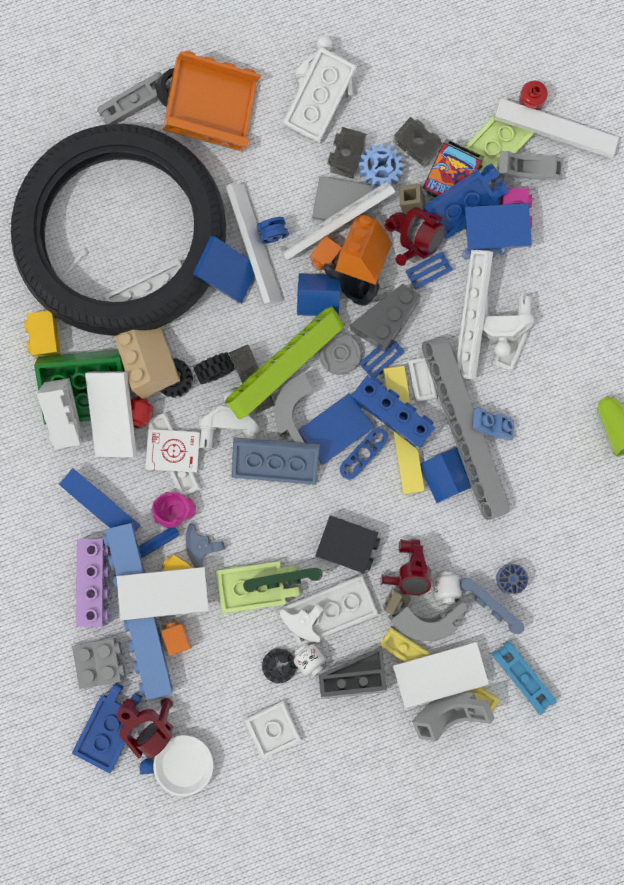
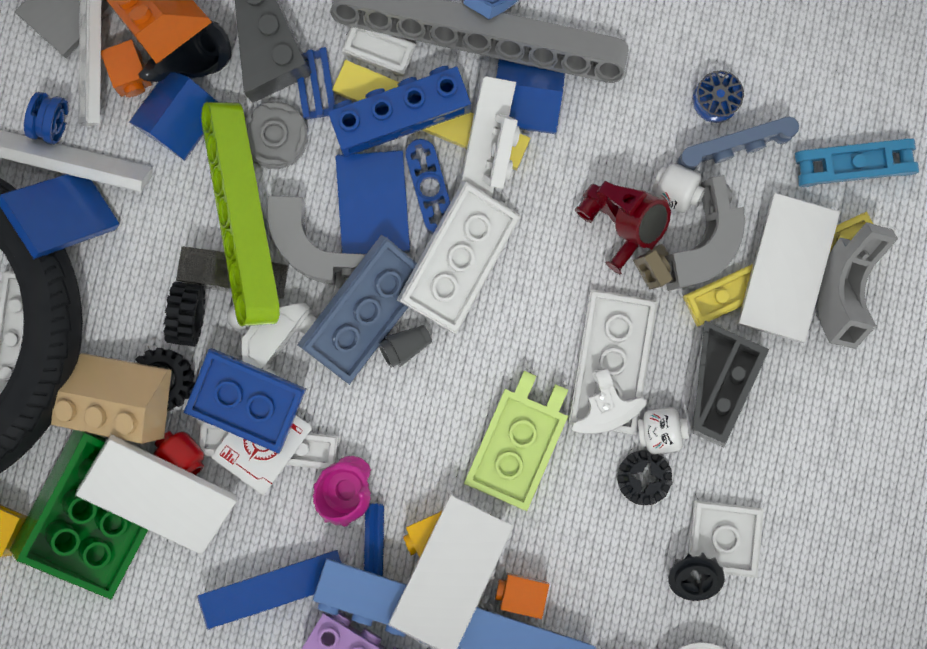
camera: 65 degrees left, 0 degrees up
(60, 413) = (110, 565): white wedge -> none
(188, 428) = (245, 400): none -> blue tile
(199, 546) = (416, 486): sand blue piece -> none
(234, 724) = (687, 587): none -> black gear
(268, 492) = (404, 345): none -> dark grey cone
(274, 581) = (528, 411): dark green plate -> none
(335, 493) = (459, 257): none -> white tile
(348, 544) = (539, 283): black brick -> none
(404, 471) = (491, 136): none -> white bracket

